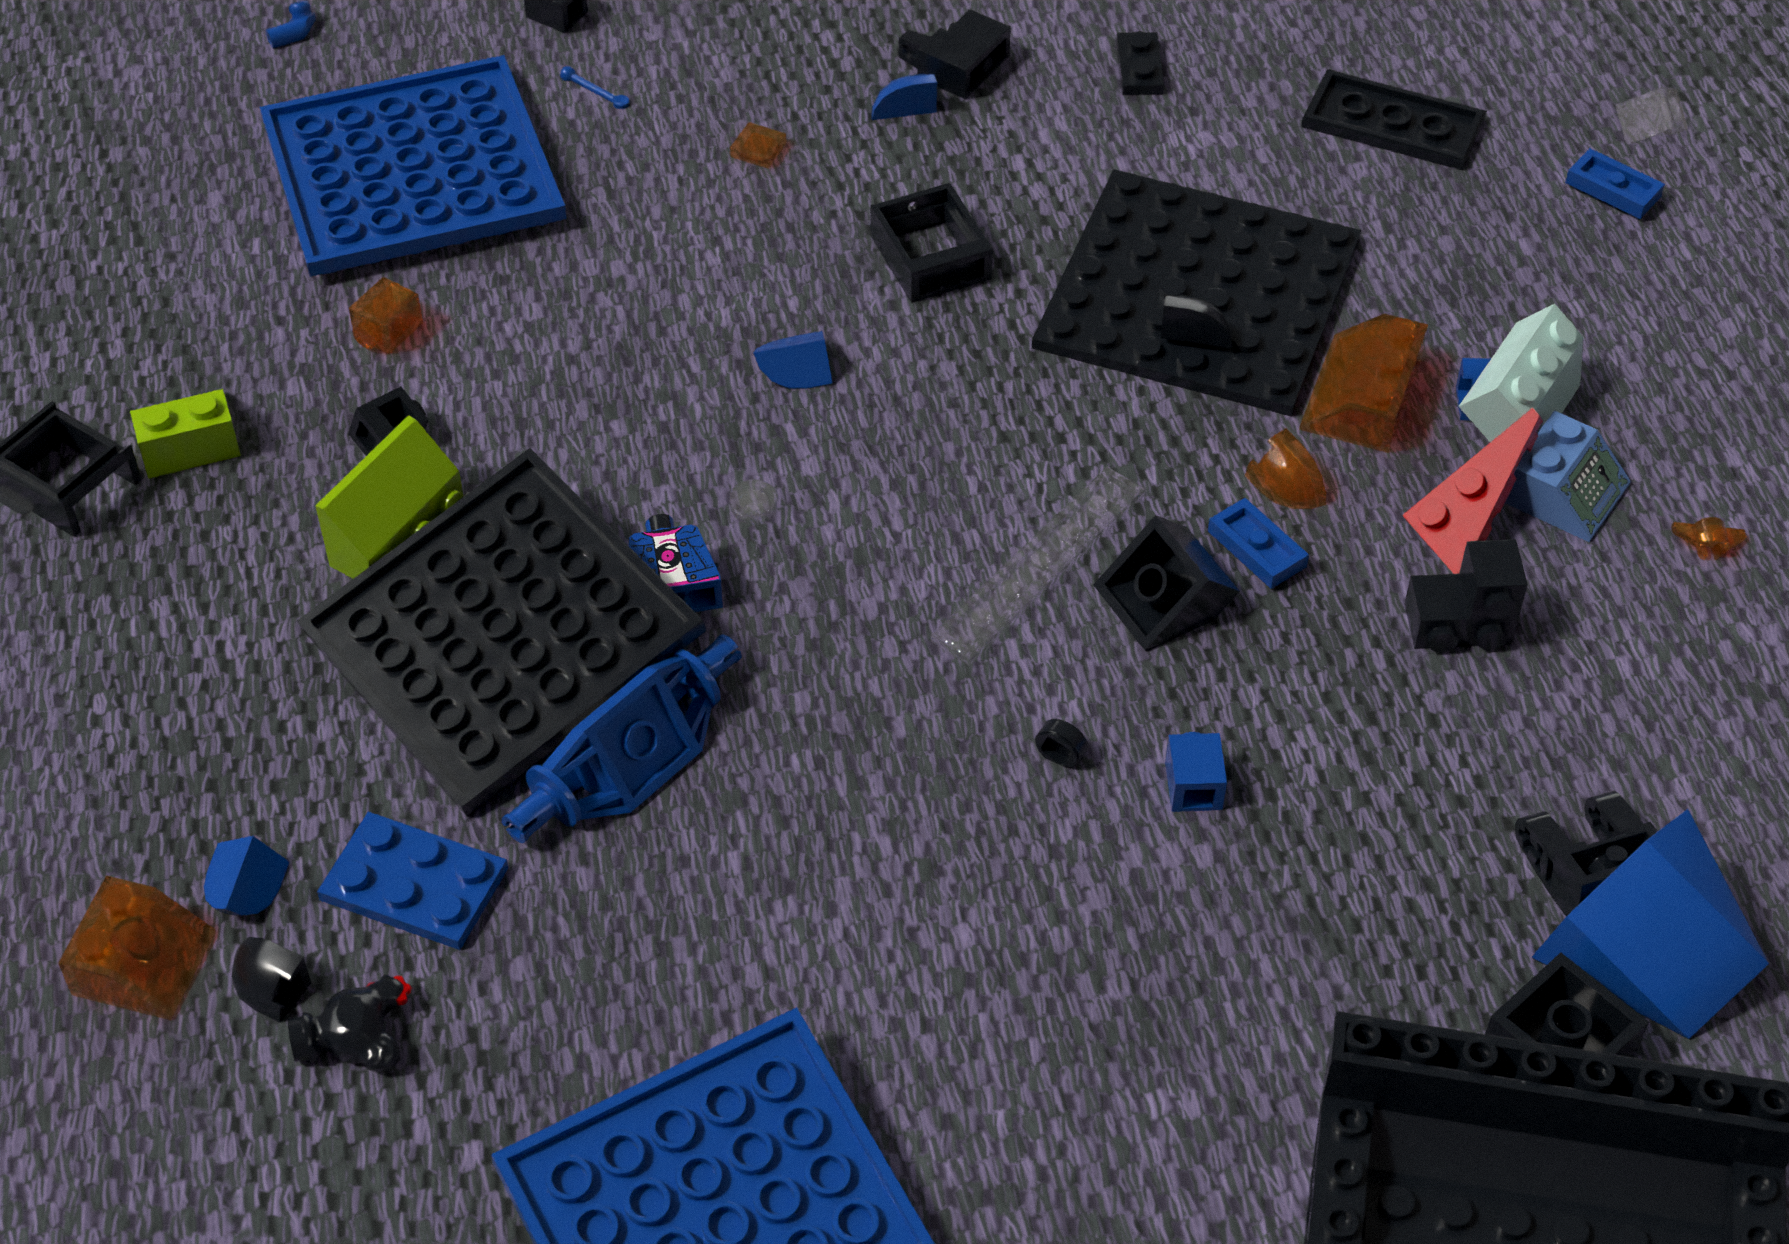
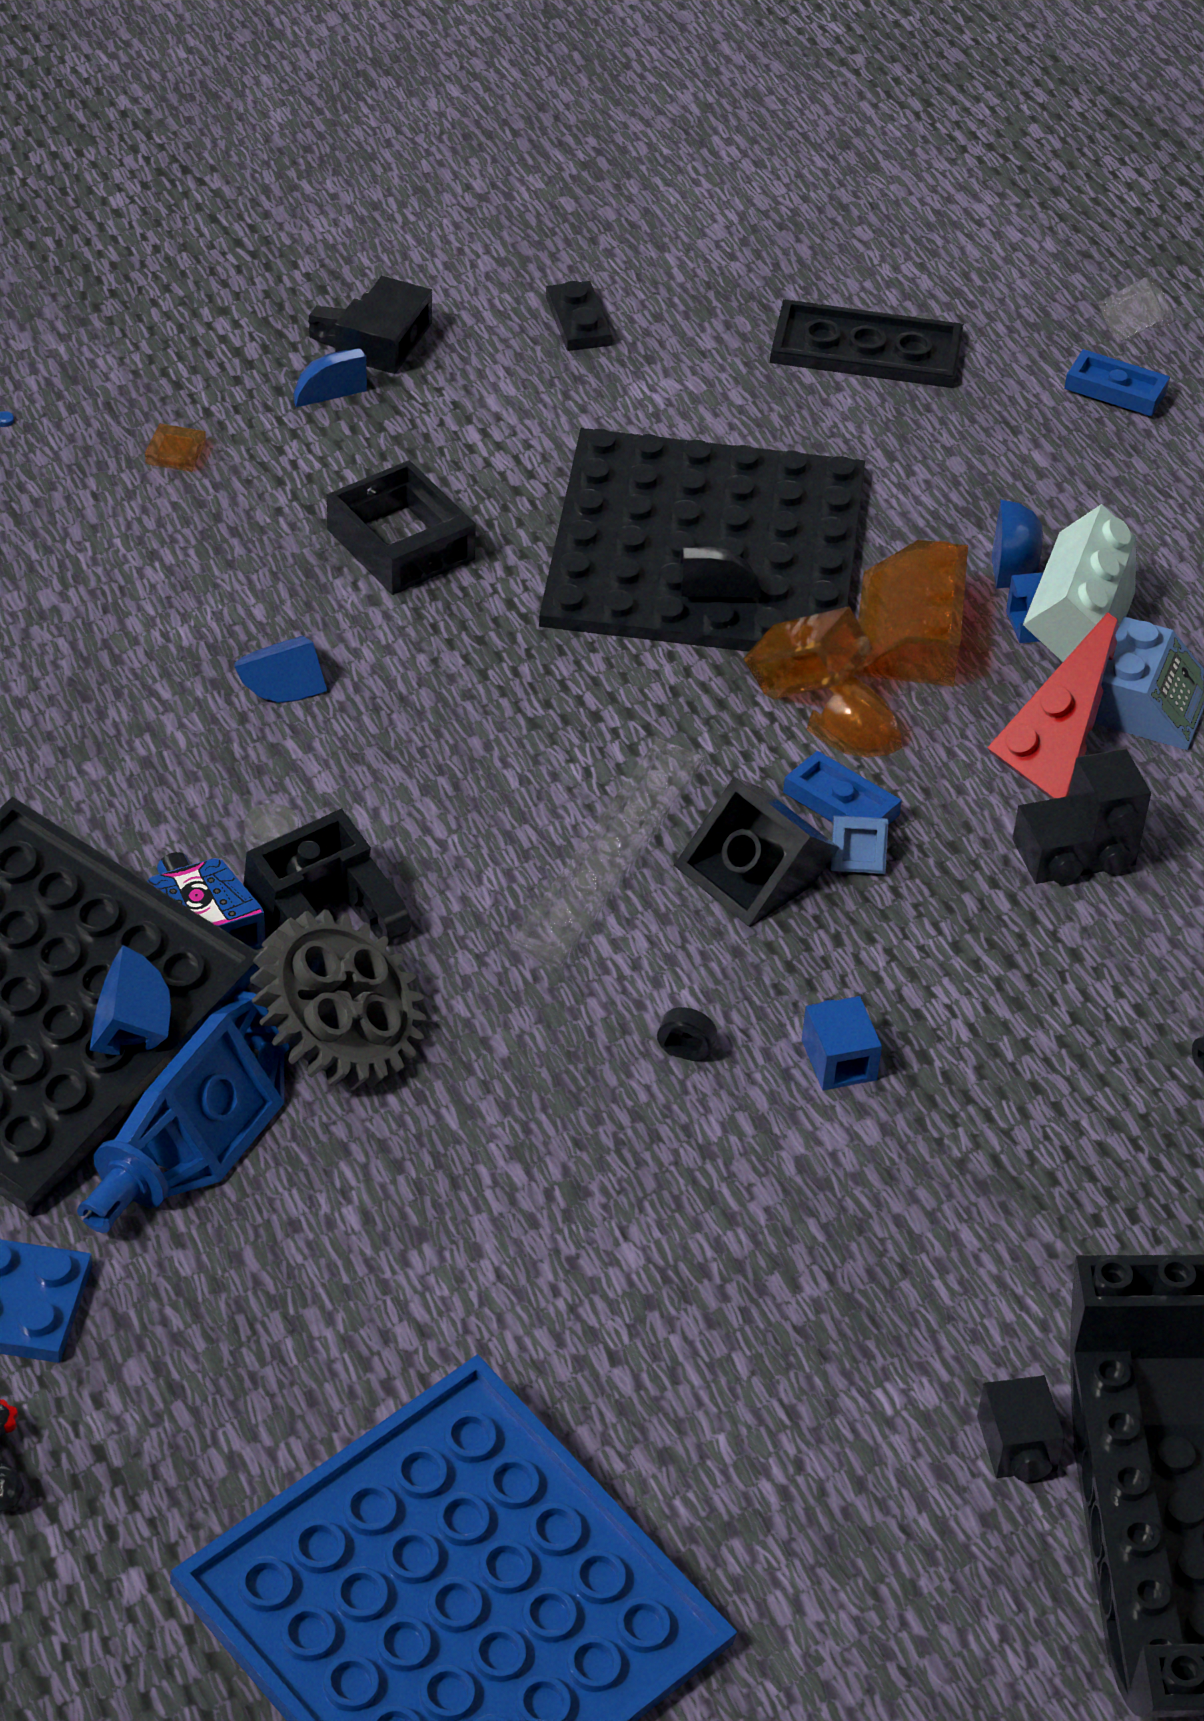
camera: 15 degrees left, 5 degrees down
(583, 649) = (131, 1005): none -> blue brick
(763, 629) = (338, 999): none -> dark grey gear
(774, 546) = (319, 866): none -> black brick
(1257, 407) = (808, 653): none -> clear orange piece
(1261, 590) = (860, 844): none -> medium blue tile
(1263, 1153) = (1021, 1428): none -> black brick
(1478, 326) = (1016, 543): none -> blue brick

